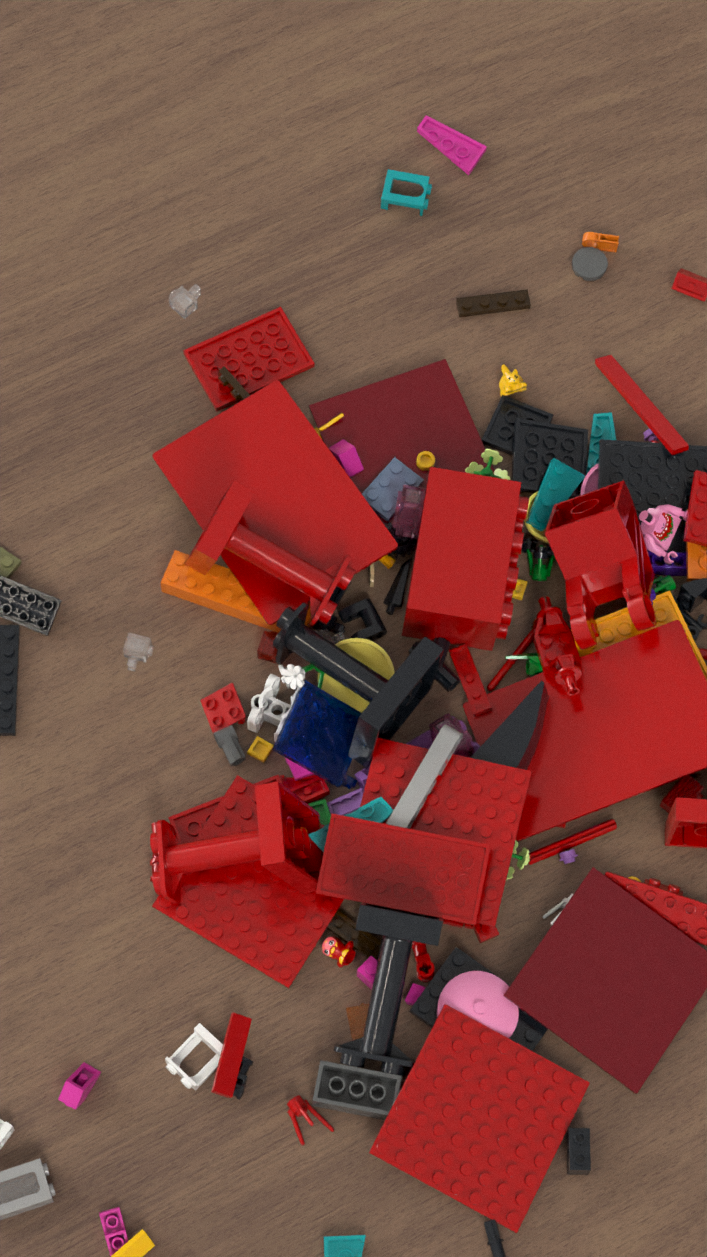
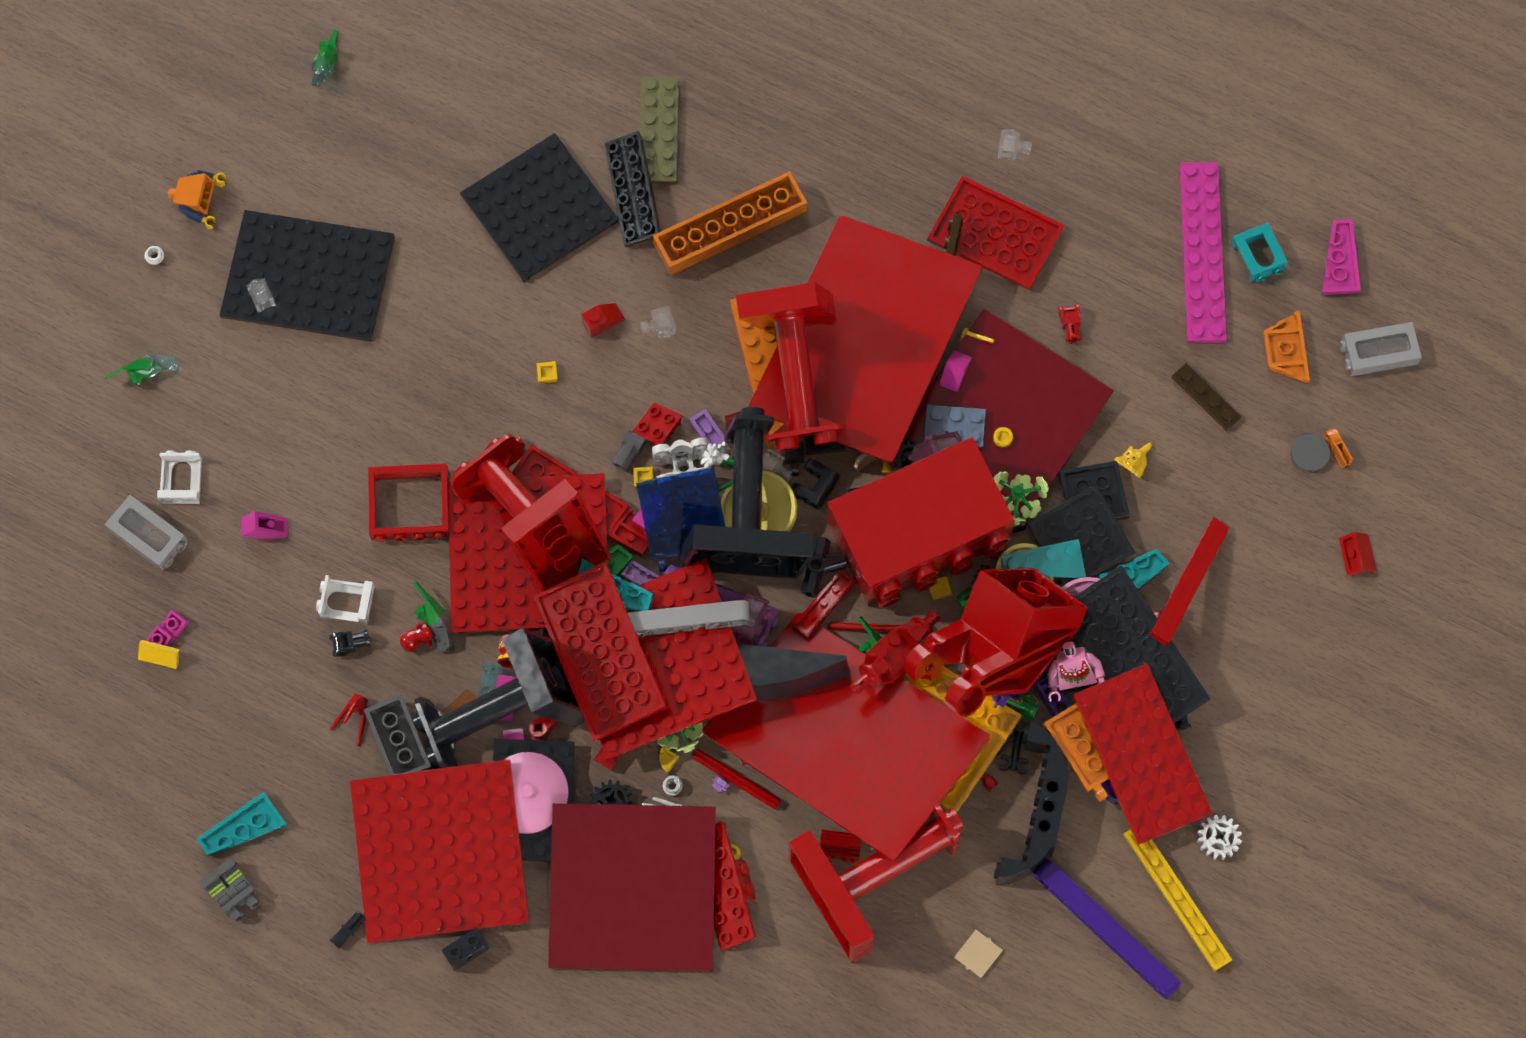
camera: 60 degrees right, 5 degrees up
(92, 542) = (730, 223): none -> orange brick
(97, 693) = (601, 318): none -> red slope
(111, 766) = (547, 372): none -> yellow tile
(119, 932) = (408, 472): none -> red window
(231, 1055) = (361, 623): red tile -> none
(255, 672) = (707, 428): none -> medium lavender plate
(269, 994) = (436, 620): none -> animal
(272, 1022) = (415, 637): none -> red animal
(354, 983) = (489, 677): none -> clear light blue leg
(361, 353) = (1071, 321): none -> red connector
(374, 230) = (1202, 252): none -> dark pink plate
(495, 224) = (1286, 348): none -> orange wing
(518, 885) = (667, 759): none -> yellow tile
(521, 944) = (614, 789): none -> black gear
(542, 164) = (1380, 349): none -> light grey piece
(543, 889) = (672, 779): none -> white plate

